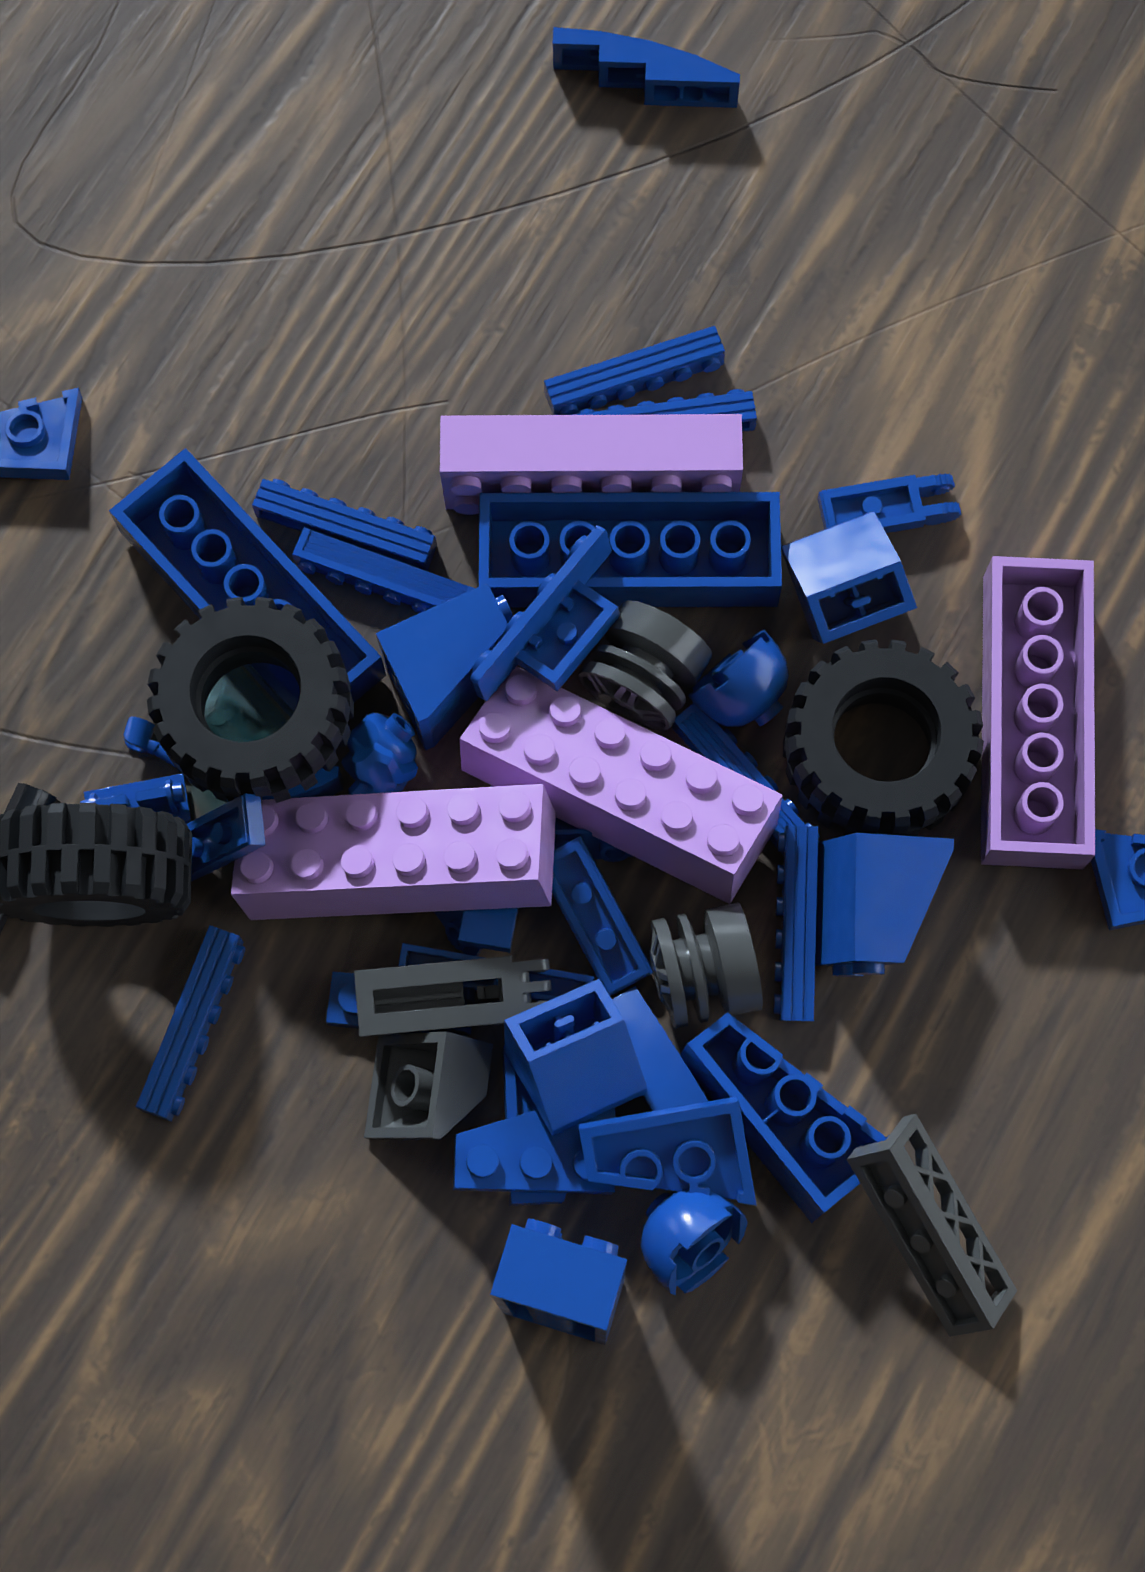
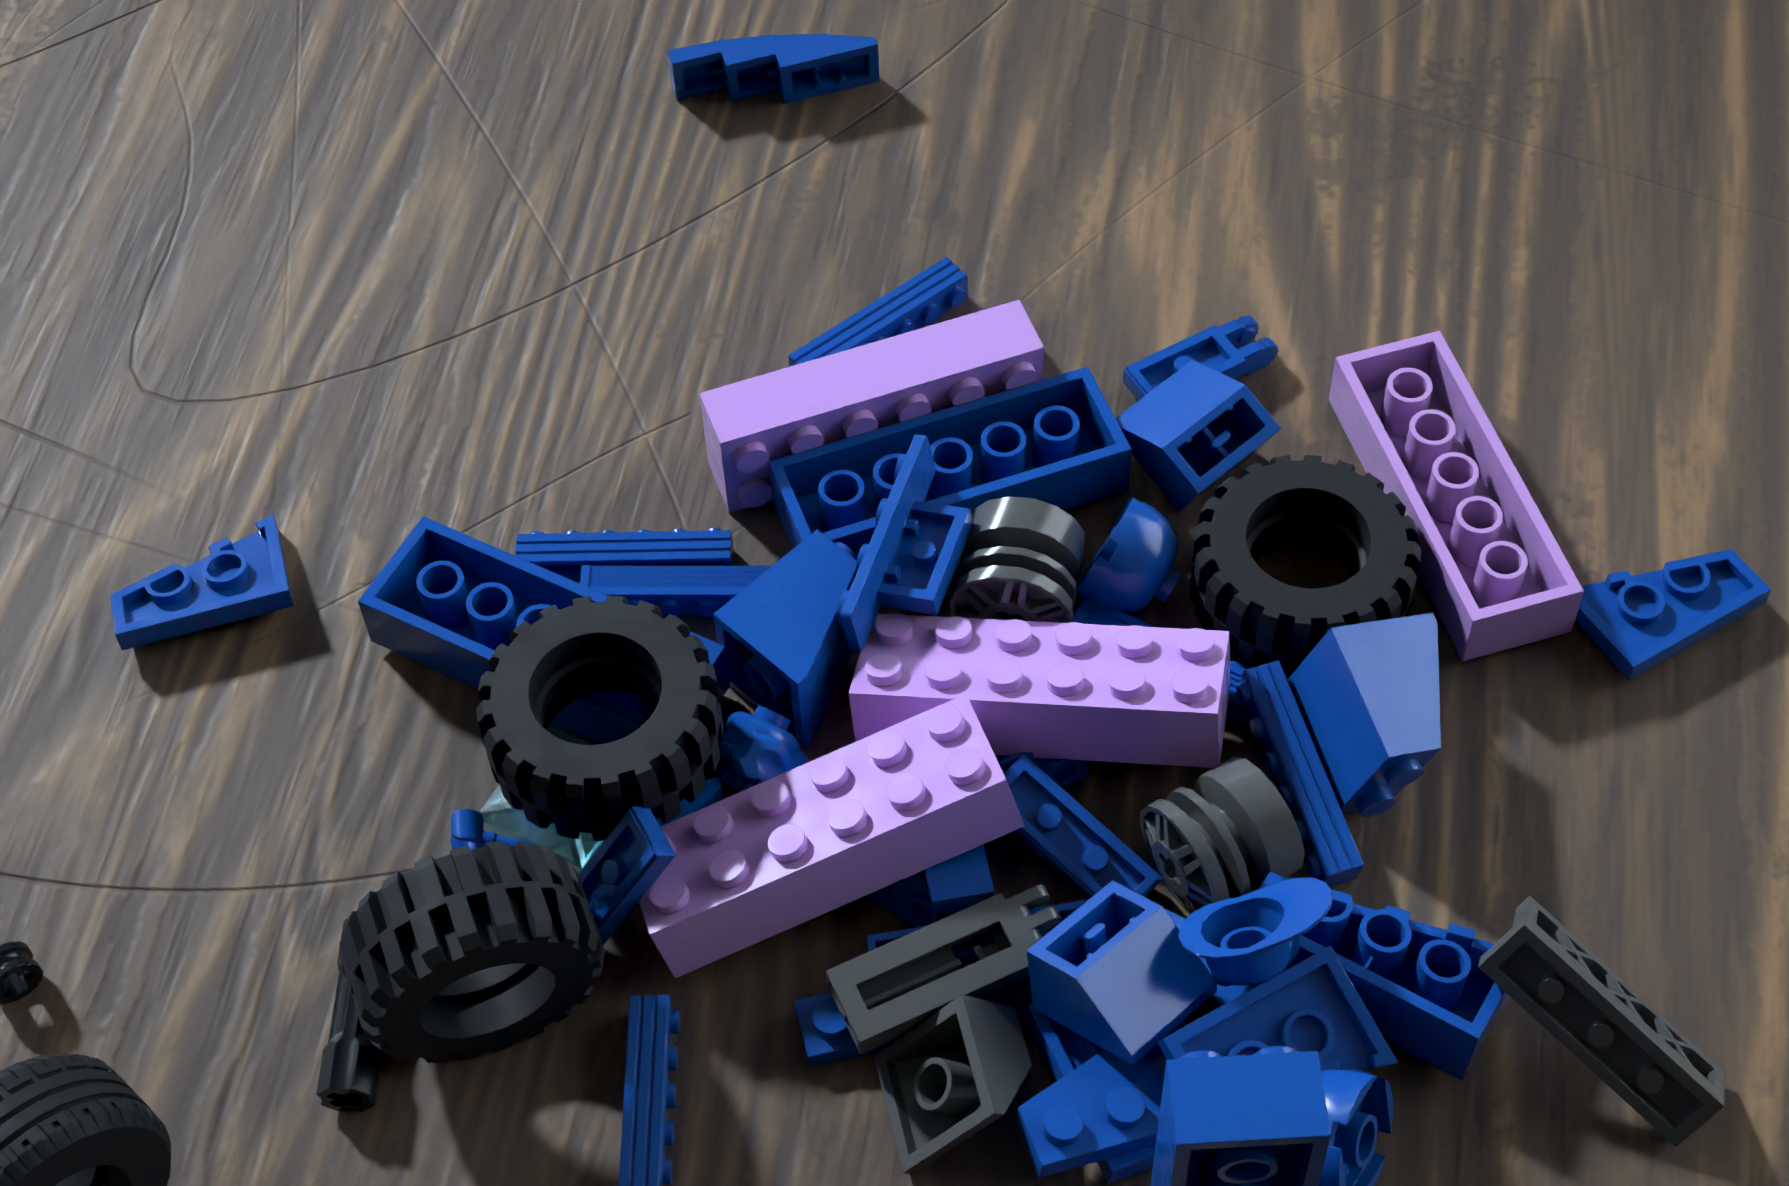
camera: 20 degrees left, 20 degrees down
(685, 1067) = (1255, 933): none -> blue piece

